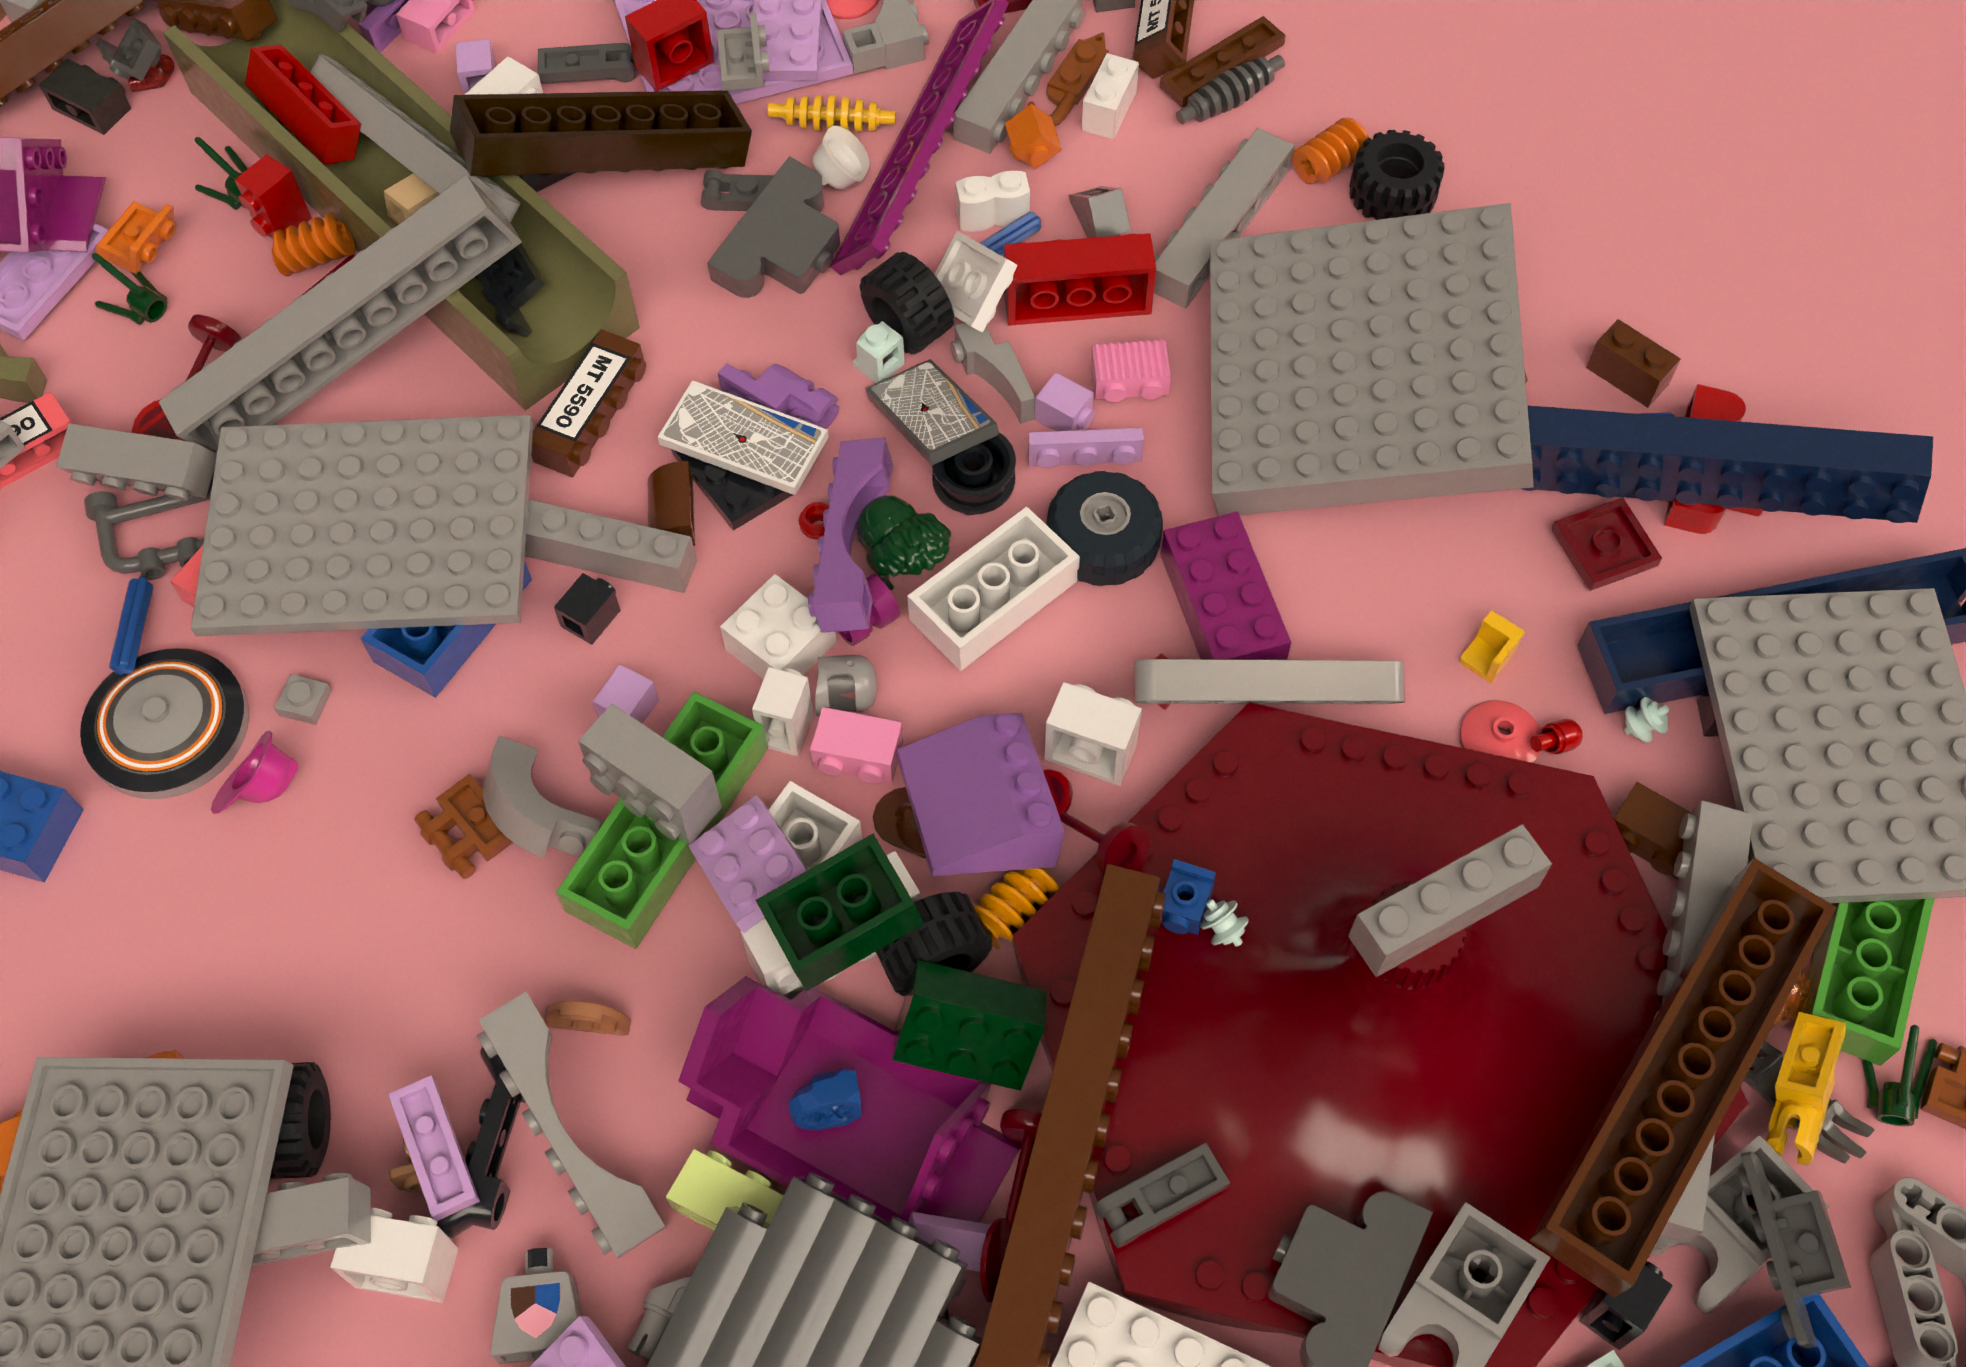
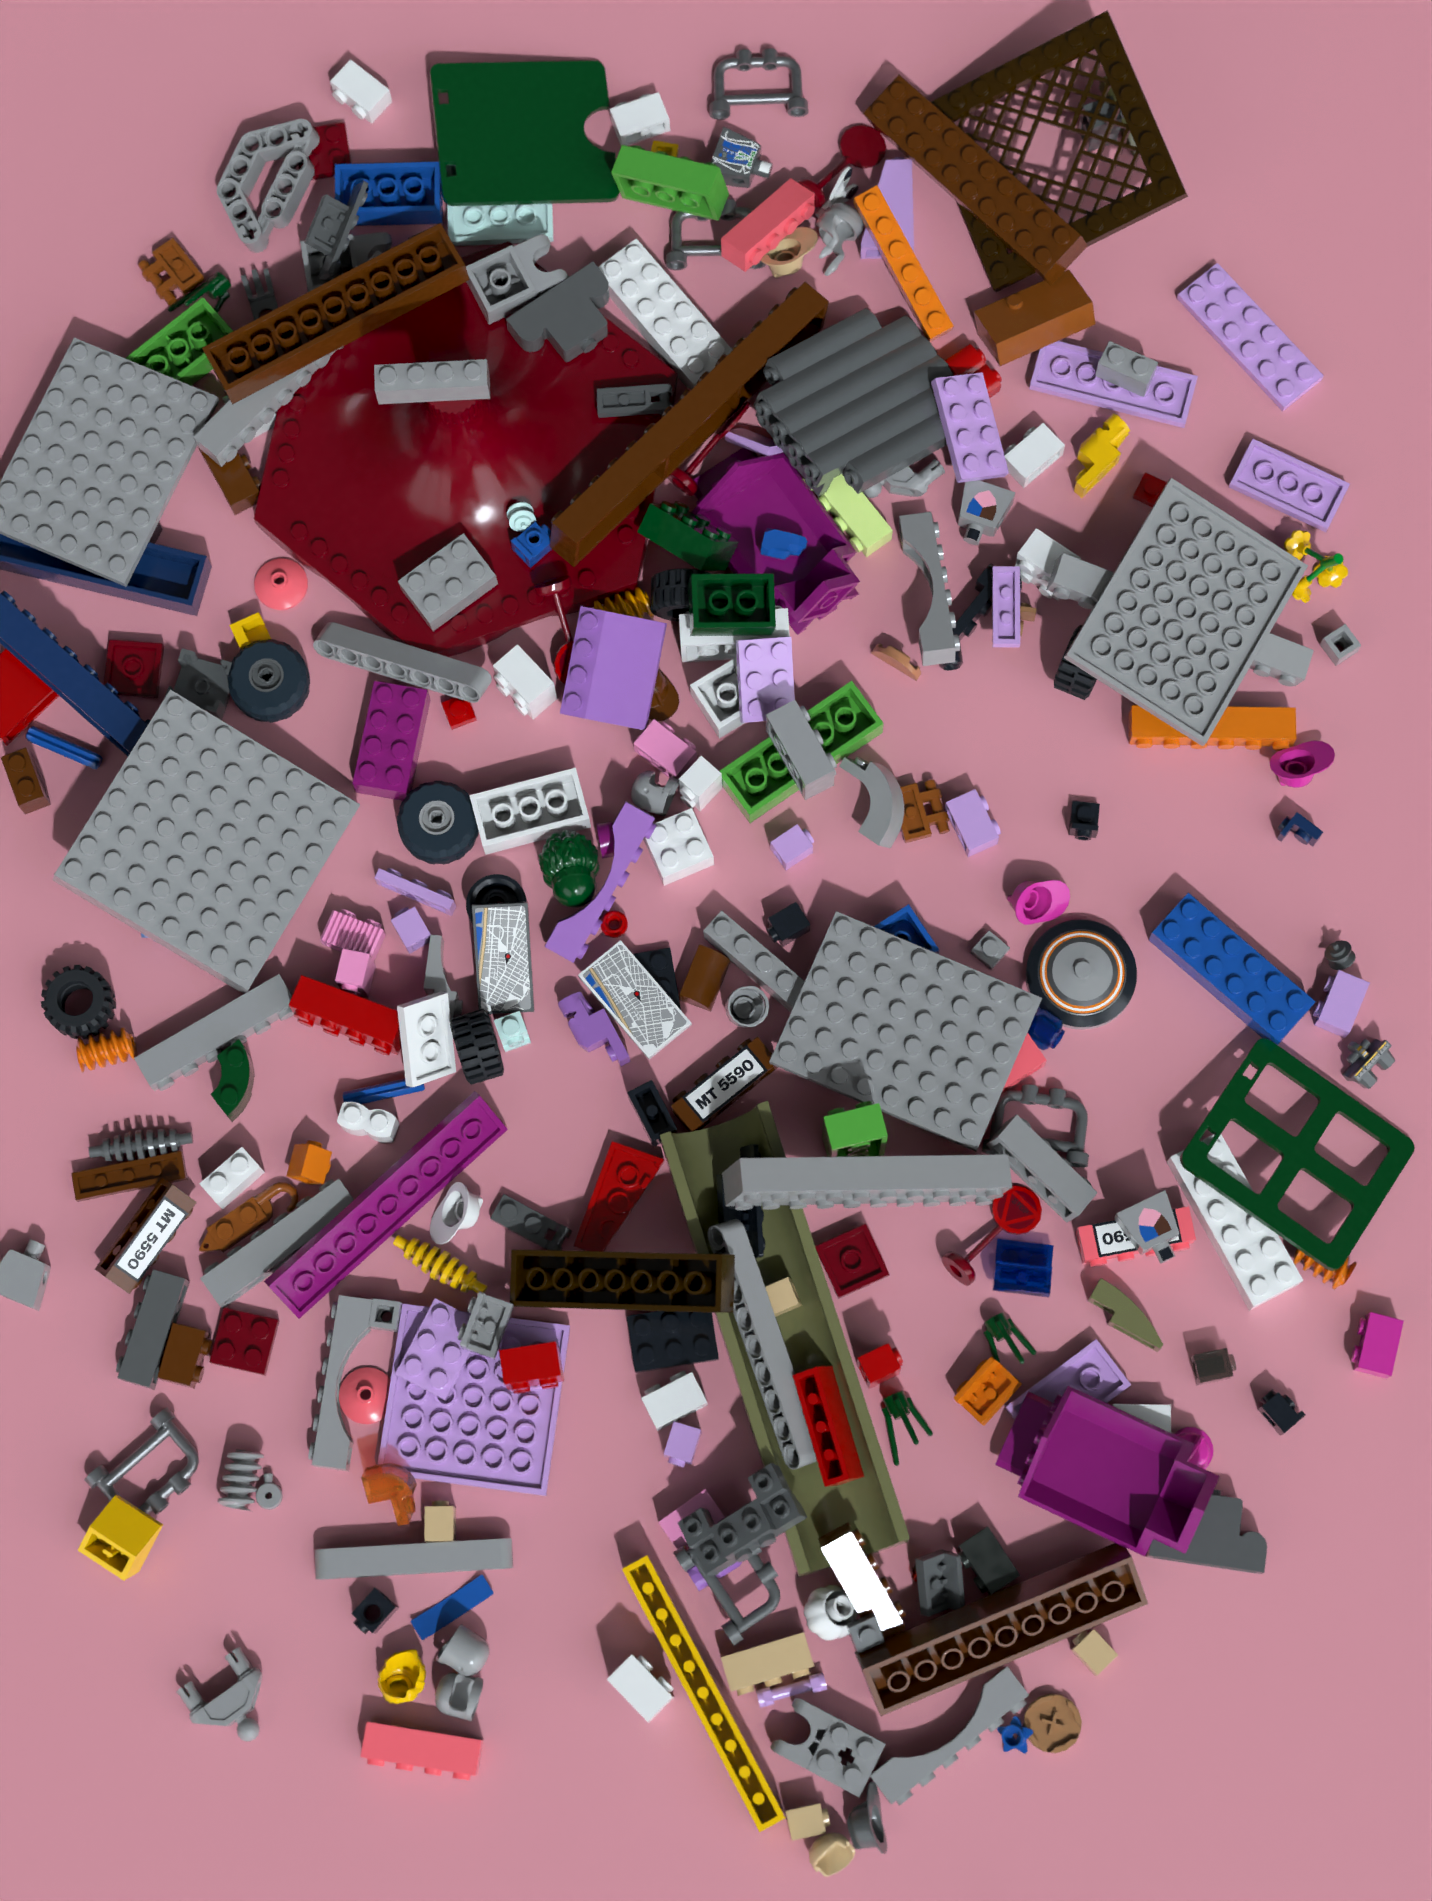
camera: 150 degrees left, 15 degrees up
(131, 359) = (1022, 1268): none -> clear blue brick
(131, 626) = (1082, 1049): blue axle -> none
(177, 630) = (1046, 1030): none -> clear blue head
(221, 916) = (1084, 820): none -> black bracket
(311, 244) = (865, 1310): orange piece -> none
(382, 364) = (855, 1131): none -> bright green brick
(383, 839) = (972, 822): none -> lavender brick
(586, 63) = (599, 1411): dark grey plate -> none
(600, 484) = (742, 1001): none -> light grey helmet
(661, 332) = (651, 1112): none -> black brick
(667, 251) = (617, 1190): none -> red wing
(779, 236) = (532, 1159): dark grey brick -> none
(1098, 316) = (355, 972): none -> bright pink brick
(1101, 211) = (297, 1079): slope -> none
(1169, 179) = (236, 1080): none -> dark green brick
(1270, 789) = (448, 582): none -> light grey brick
(1428, 596) = (269, 695): none -> black wheel
(1507, 561) = (203, 683): none -> dark grey panel
(1558, 737) = (250, 563): red cylinder -> none
(1649, 718) = (193, 543): light aqua wheel -> none
(1805, 1084) = (264, 302): yellow plate -> none

